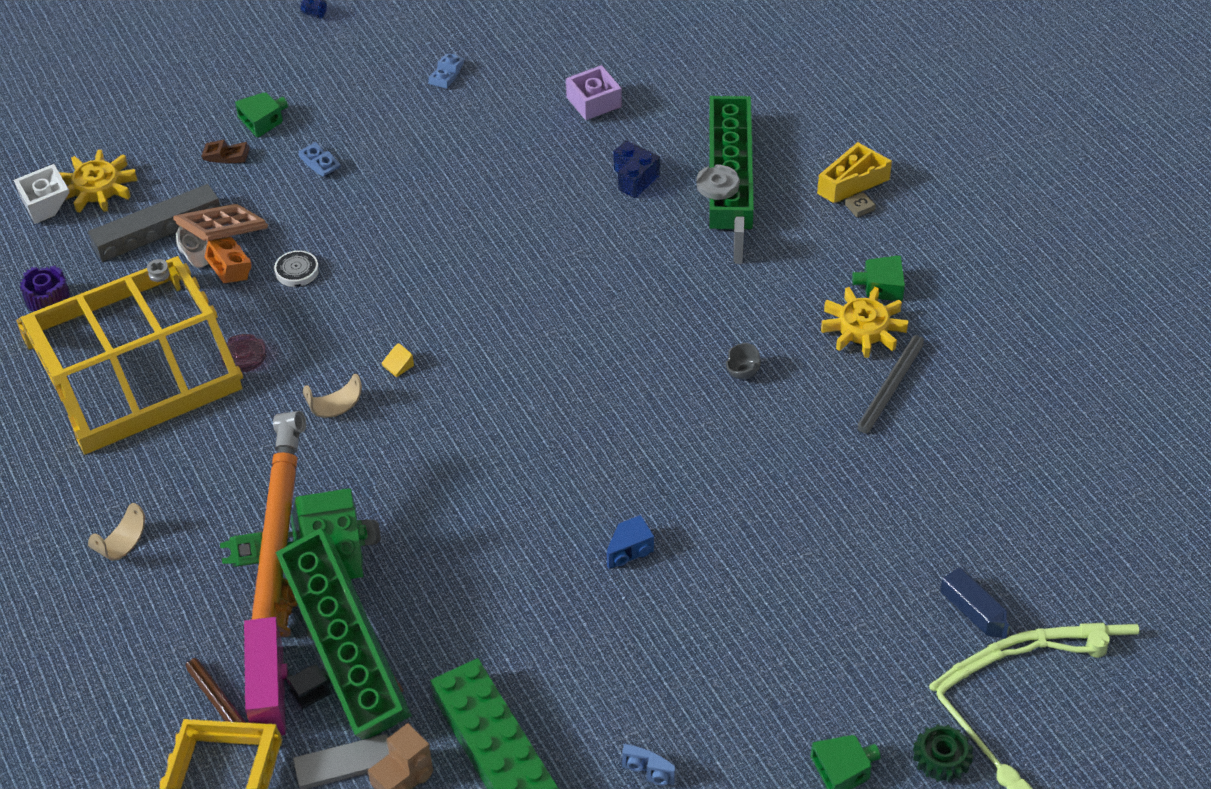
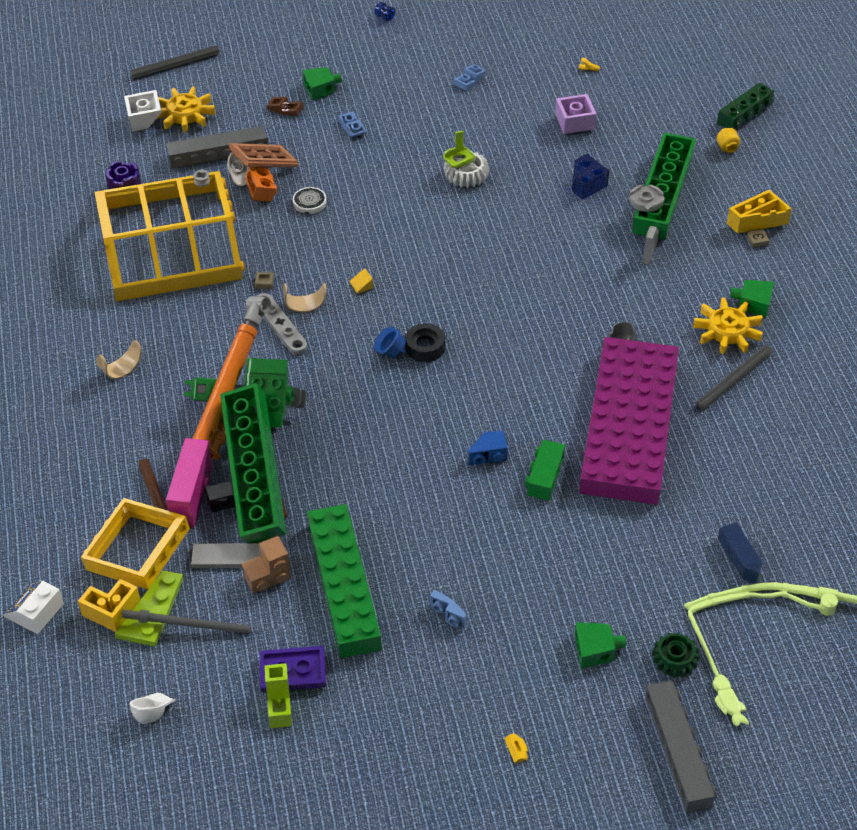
camera: 15 degrees right, 0 degrees up
(62, 121) = (174, 62): none -> dark grey axle
(246, 351) = (252, 252): clear pink tile -> none
(272, 385) = (264, 280): none -> dark tan tile
(323, 447) = (287, 332): none -> light grey piece
(460, 432) = (390, 342): none -> blue piece
(467, 167) = (458, 150): none -> lime piece
(482, 188) = (469, 174): none -> white gear
(503, 437) = (429, 353): none -> black tyre
(586, 29) = (588, 65): none -> yellow piece
(706, 553) = (545, 469): none -> green brick
(785, 90) = (728, 140): none -> yellow head
(789, 468) = (629, 421): none -> magenta brick
(792, 45) = (745, 106): none -> dark green brick

